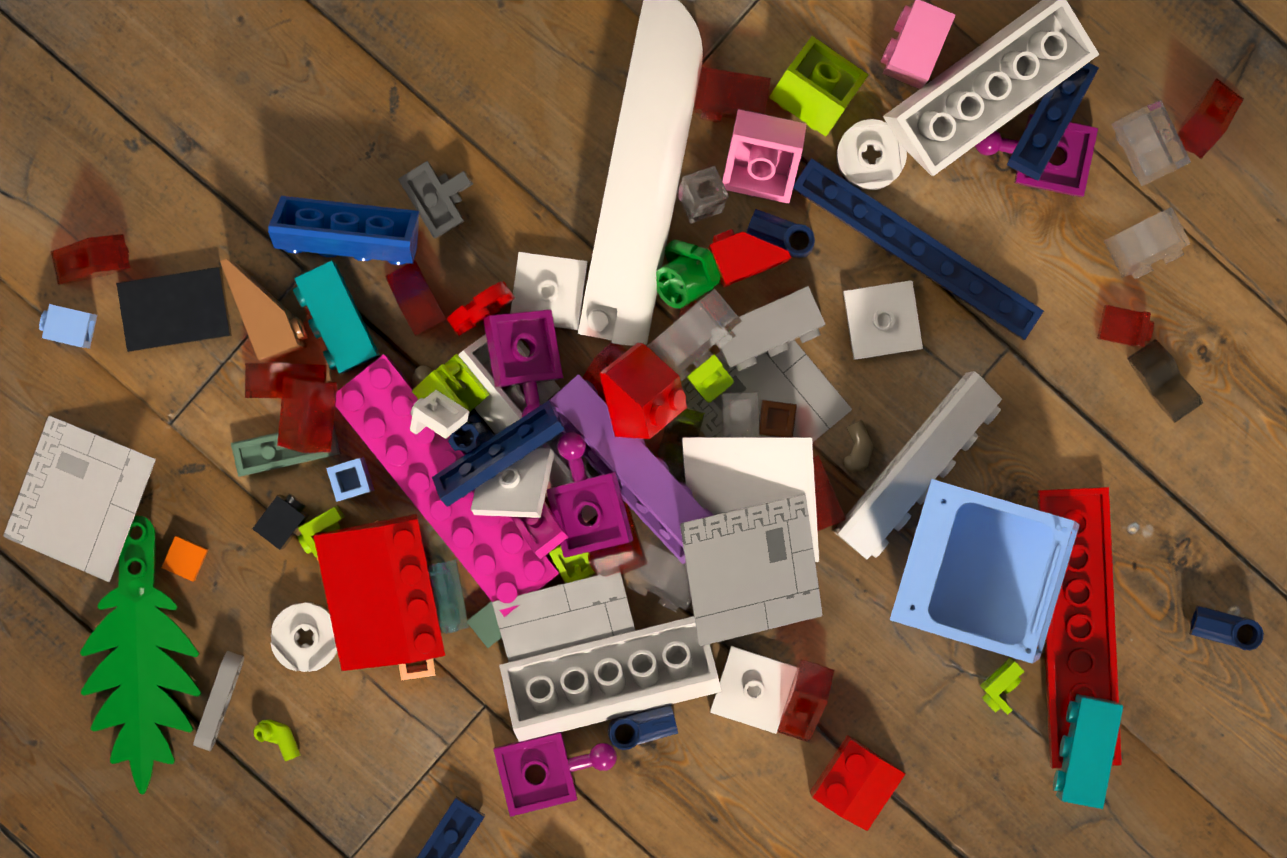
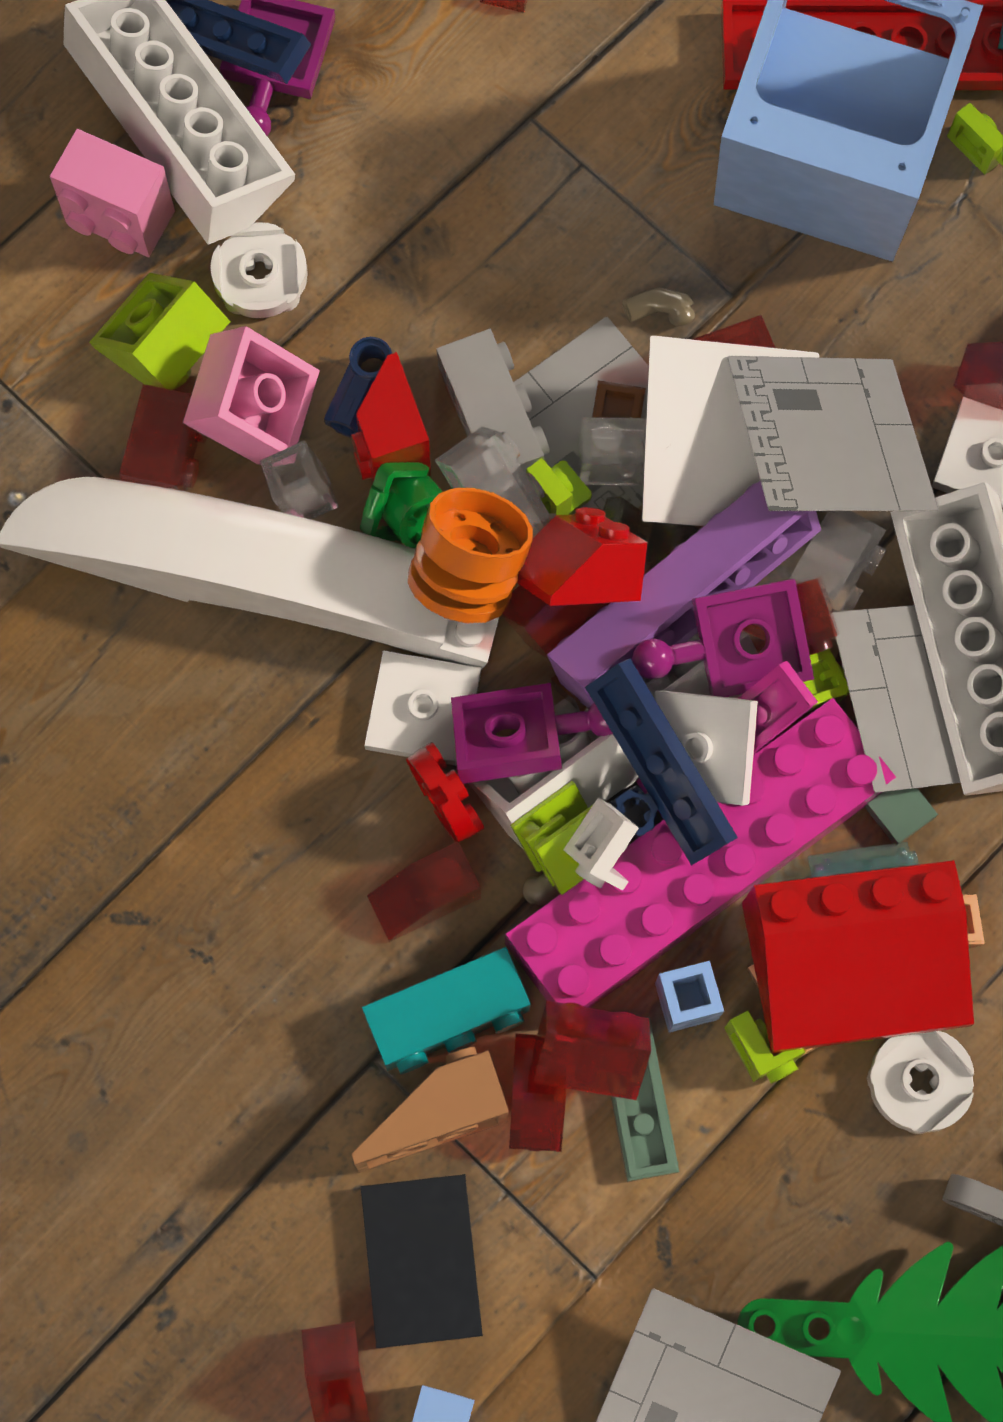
camera: 90 degrees left, 15 degrees down
(185, 558) = (801, 1261): orange tile -> none
(281, 520) = (747, 1106): black brick -> none
(345, 230) = (318, 985): blue slope -> none
(435, 197) = (277, 859): dark grey hinge -> none
(638, 316) = (469, 555): none -> orange wheel
(882, 320) = (486, 269): white plate -> none
(917, 249) = (395, 214): dark blue plate -> none
(920, 460) = (684, 225): white slope -> none

